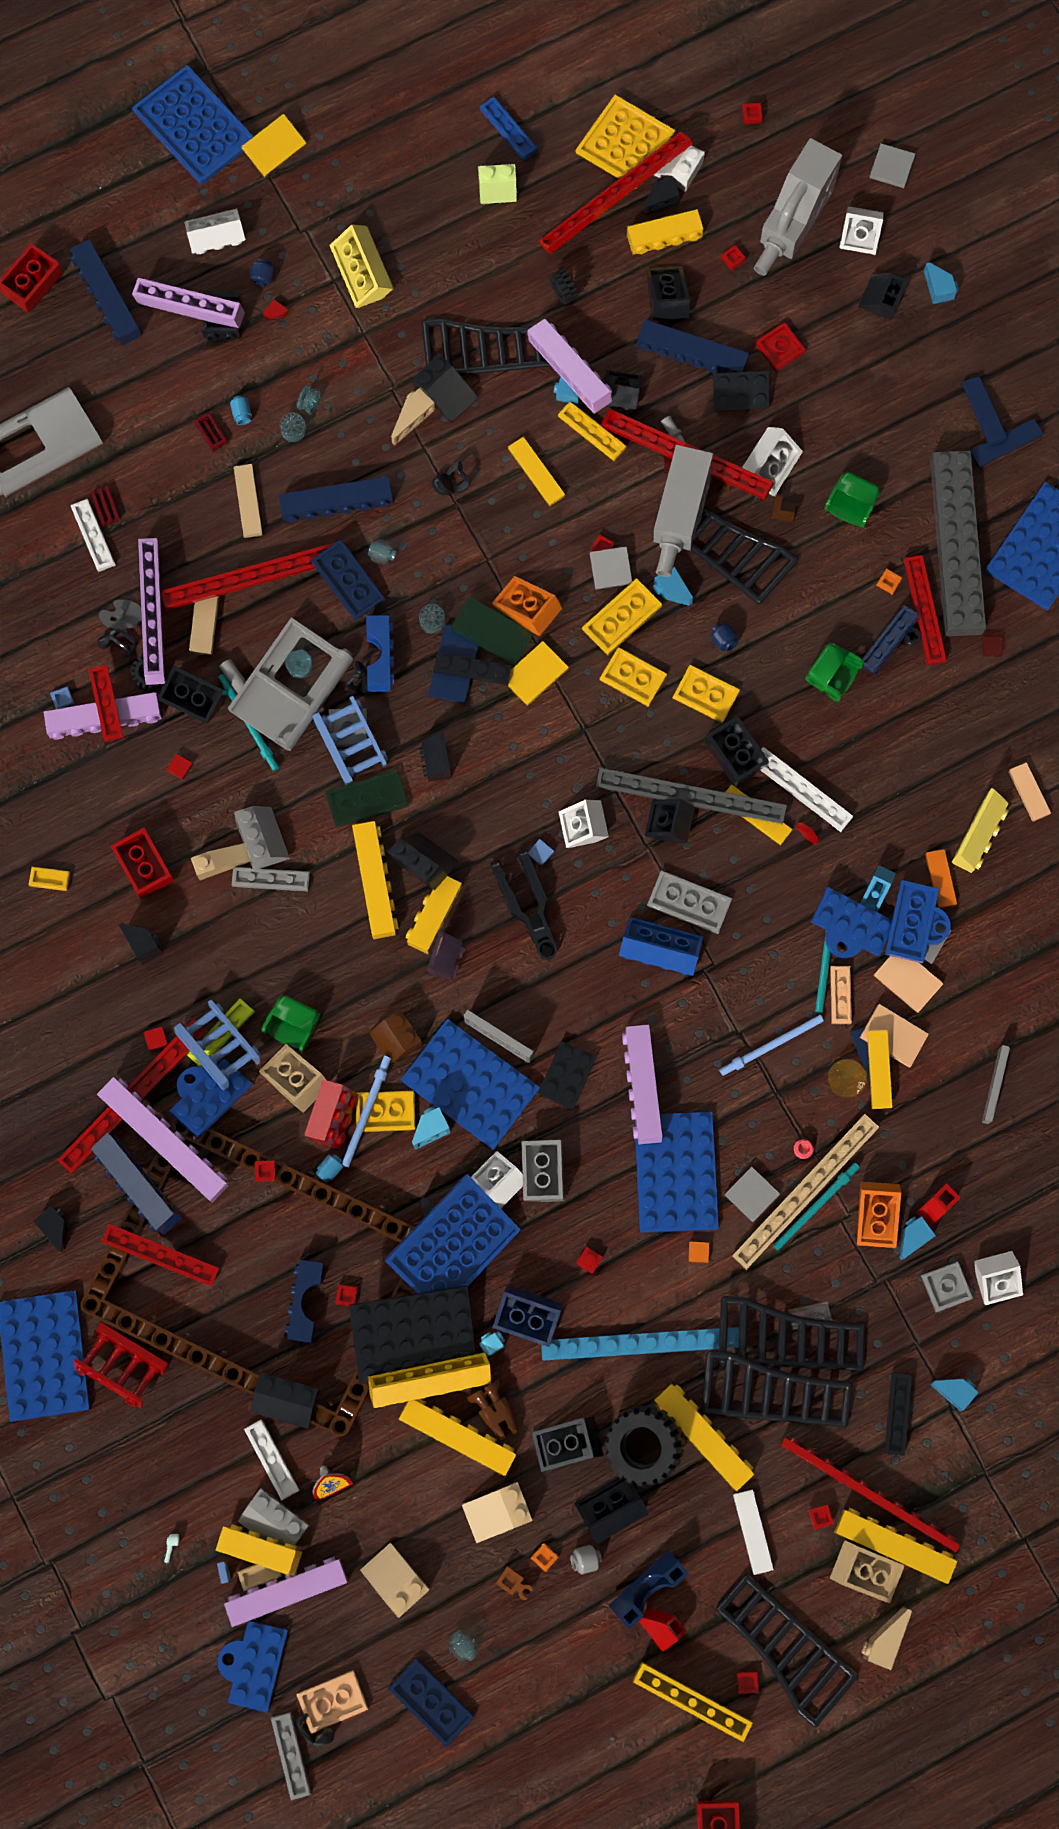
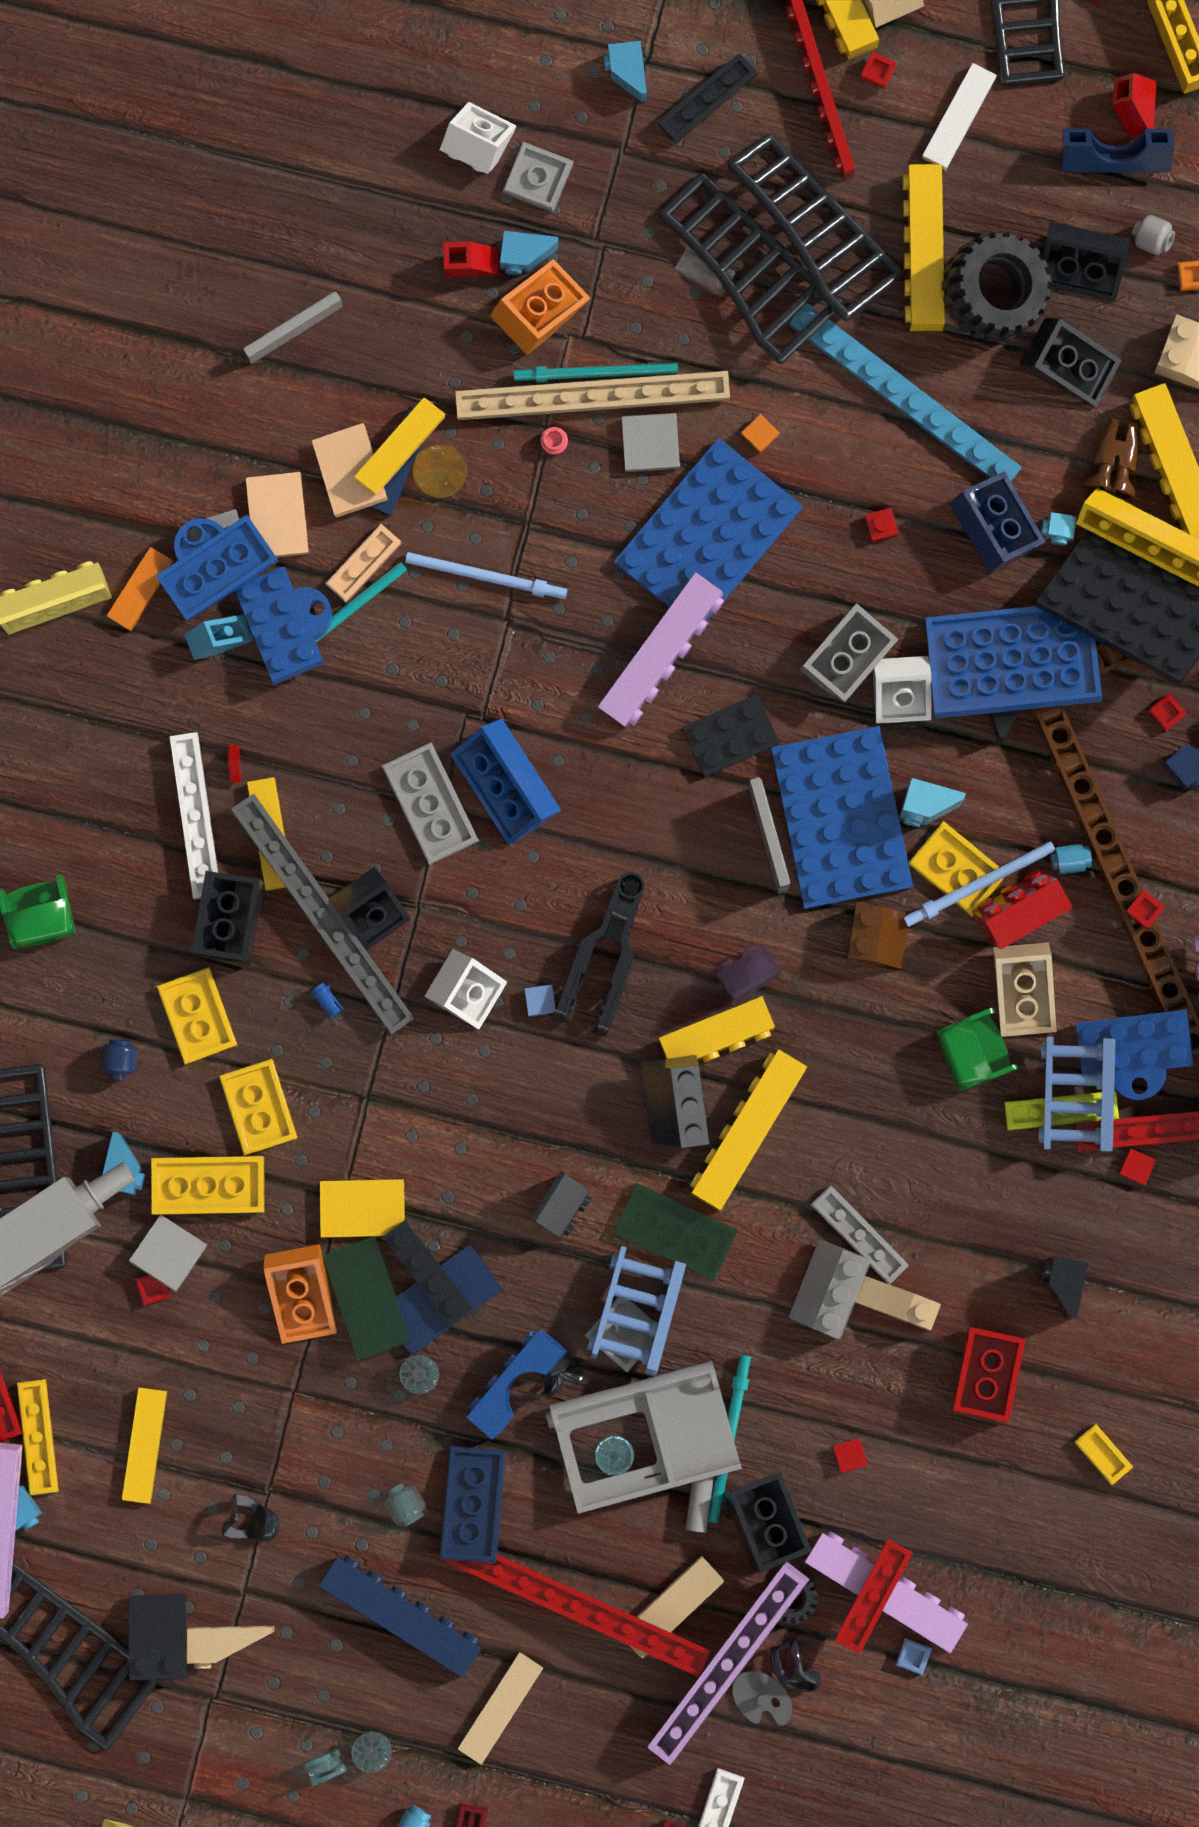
camera: 135 degrees left, 5 degrees up
(648, 757) = (326, 1000): none -> blue pin

